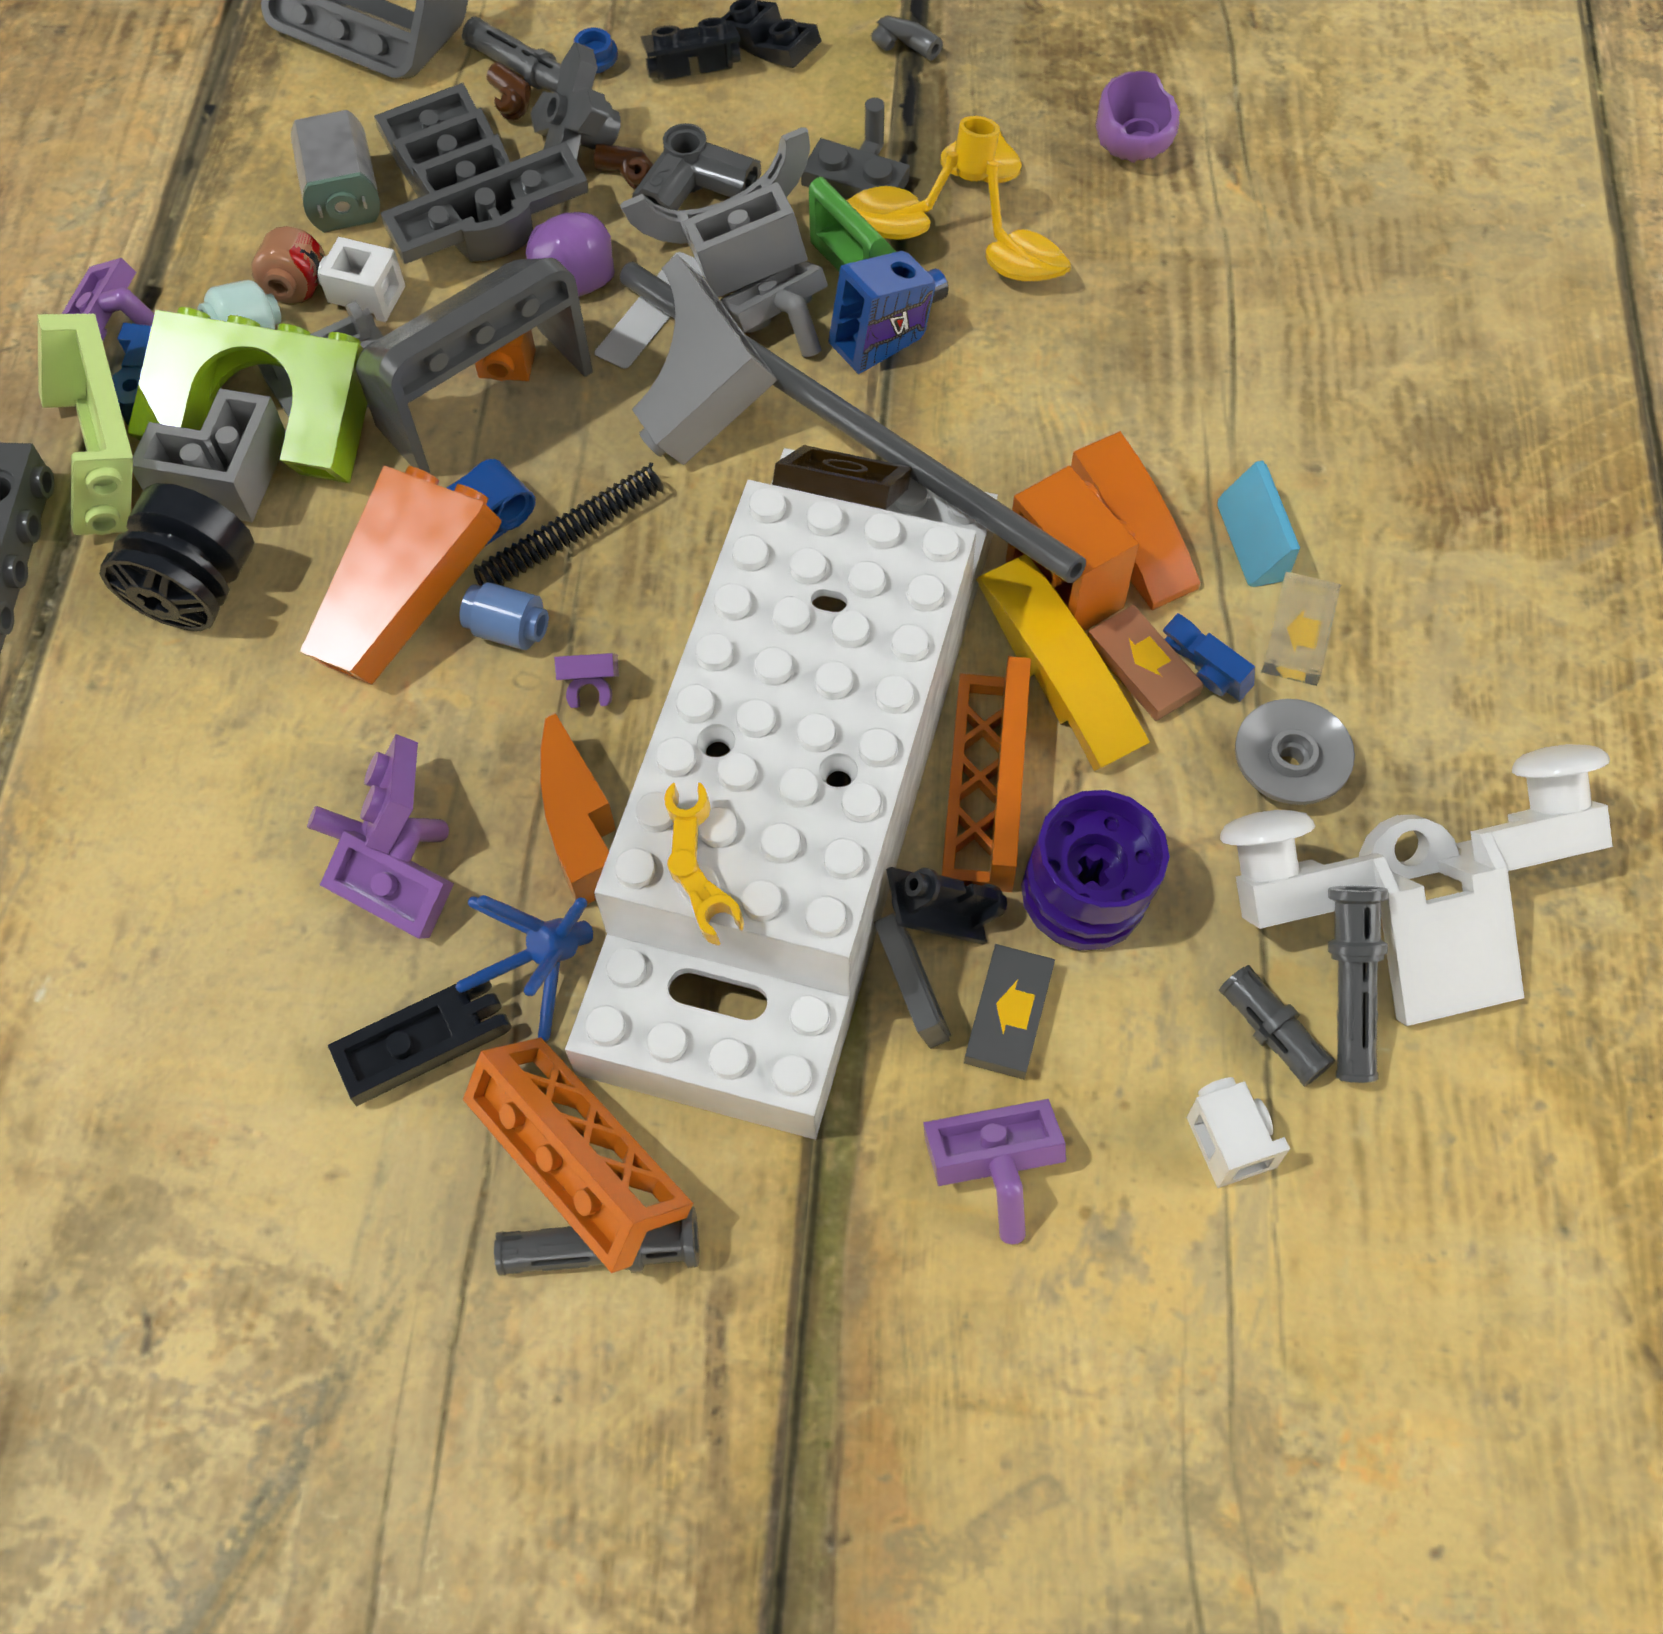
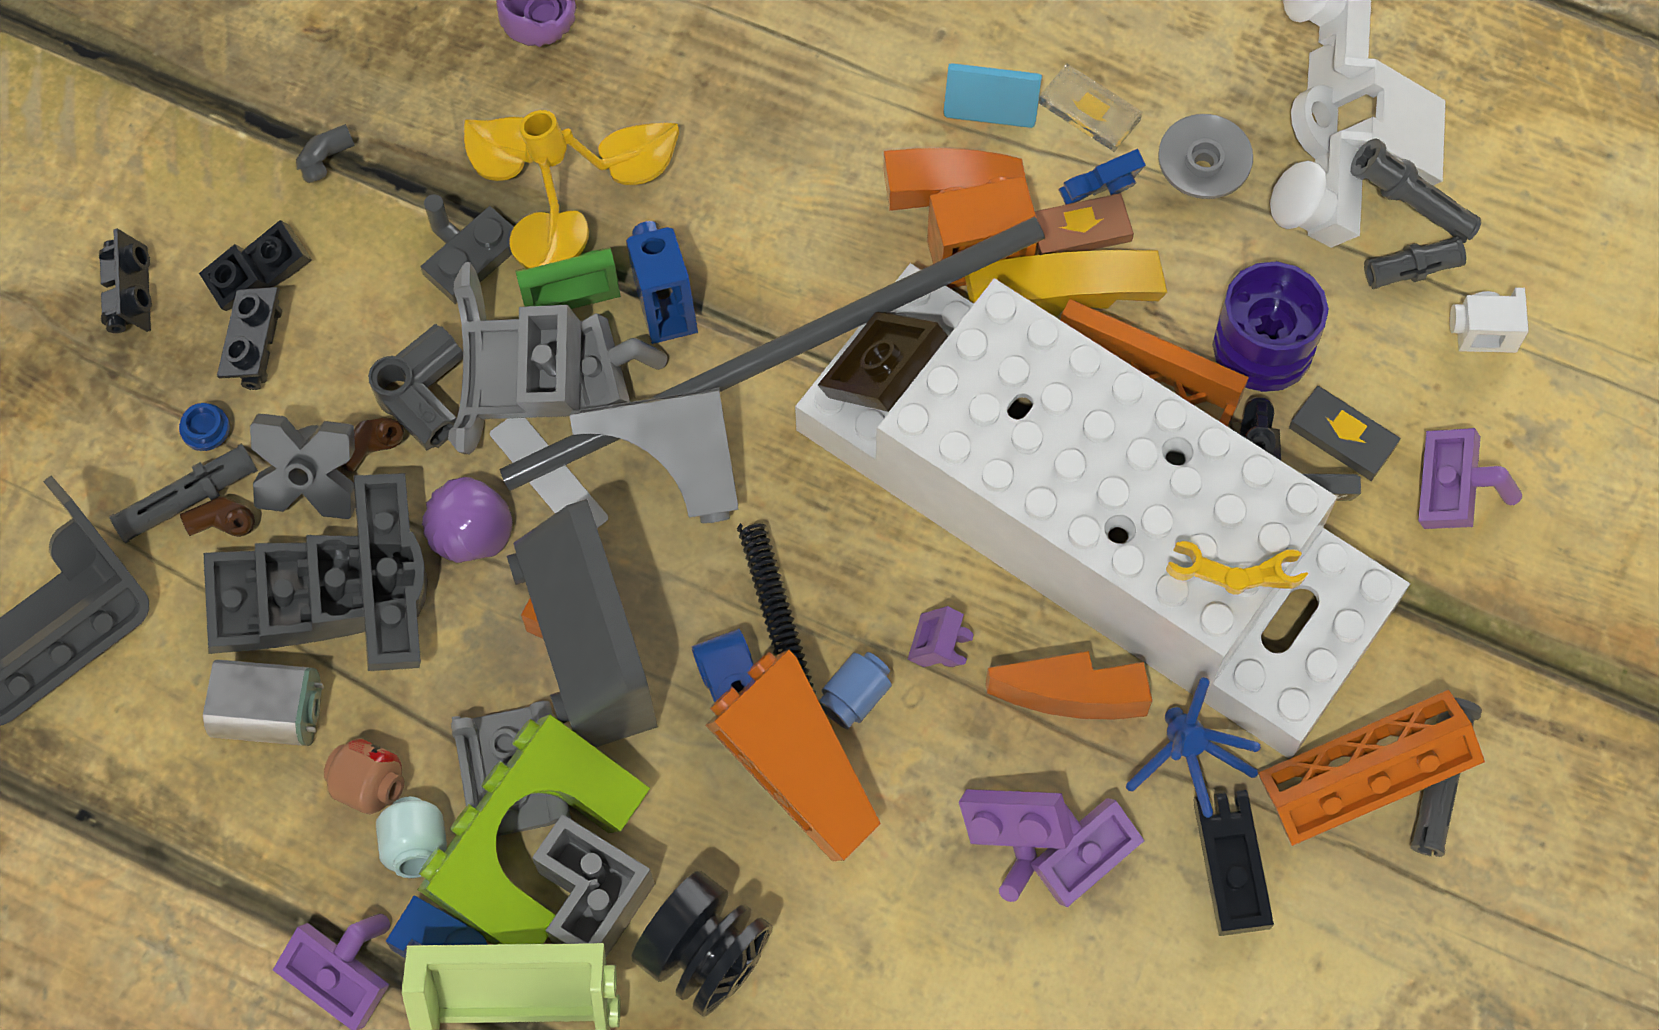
camera: 70 degrees left, 5 degrees up
(362, 275) = (408, 698): white brick -> none

